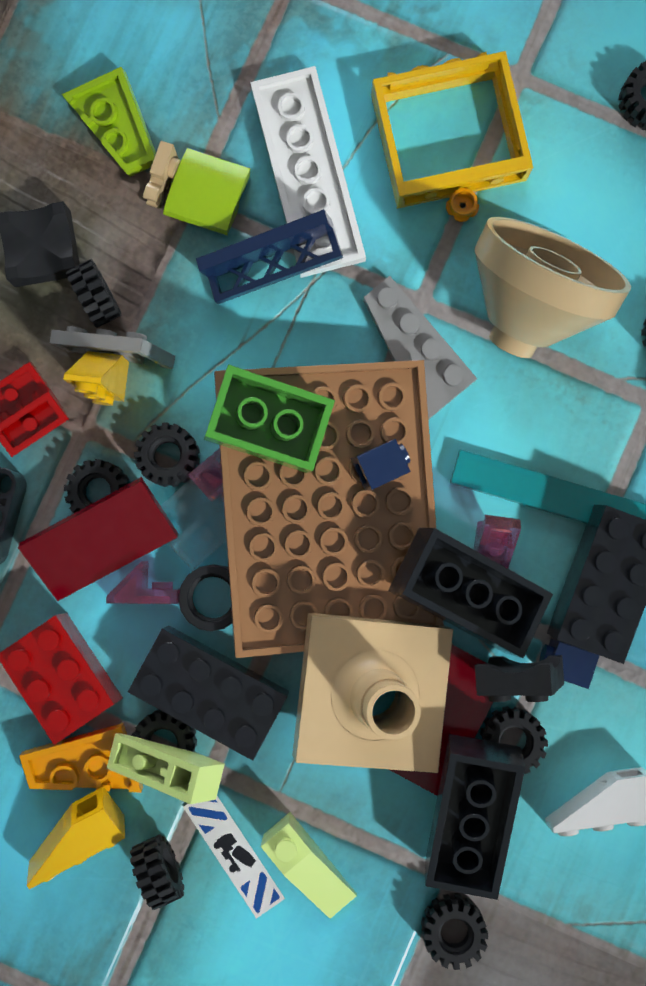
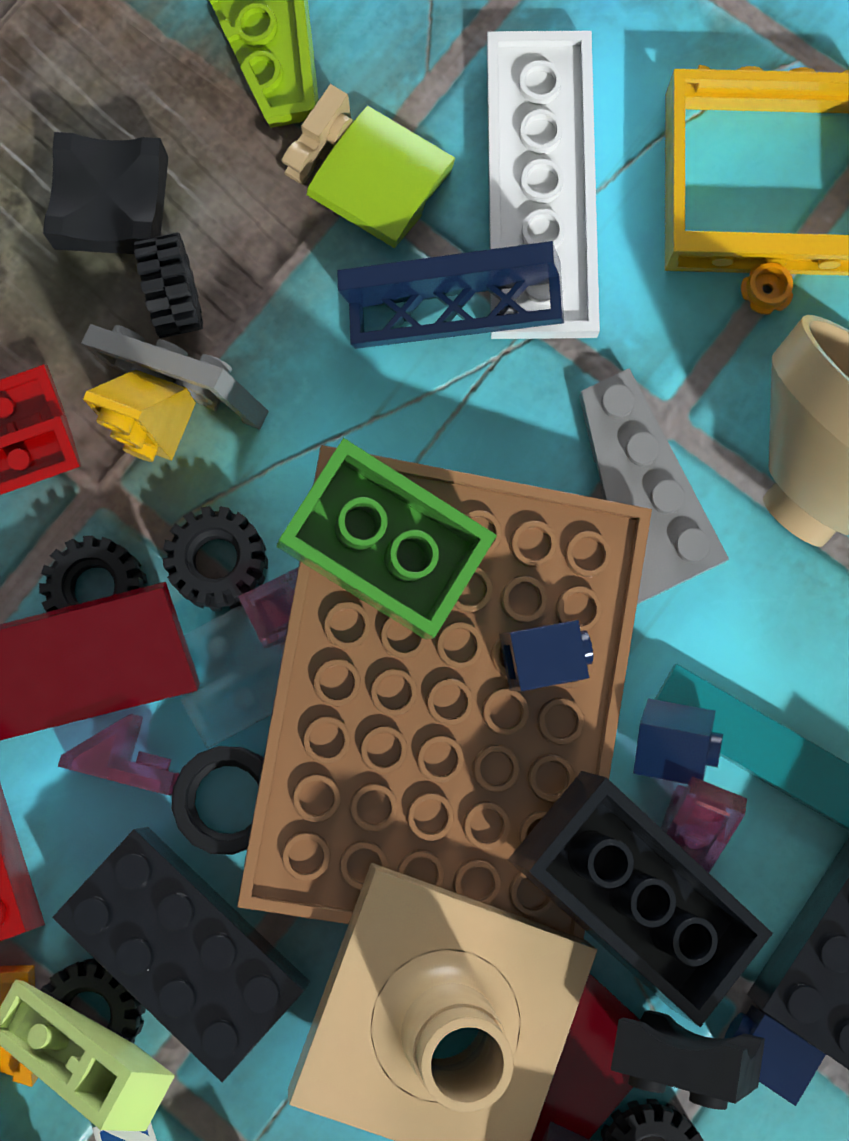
camera: 15 degrees right, 5 degrees down
(471, 496) = (676, 742): none -> dark blue brick

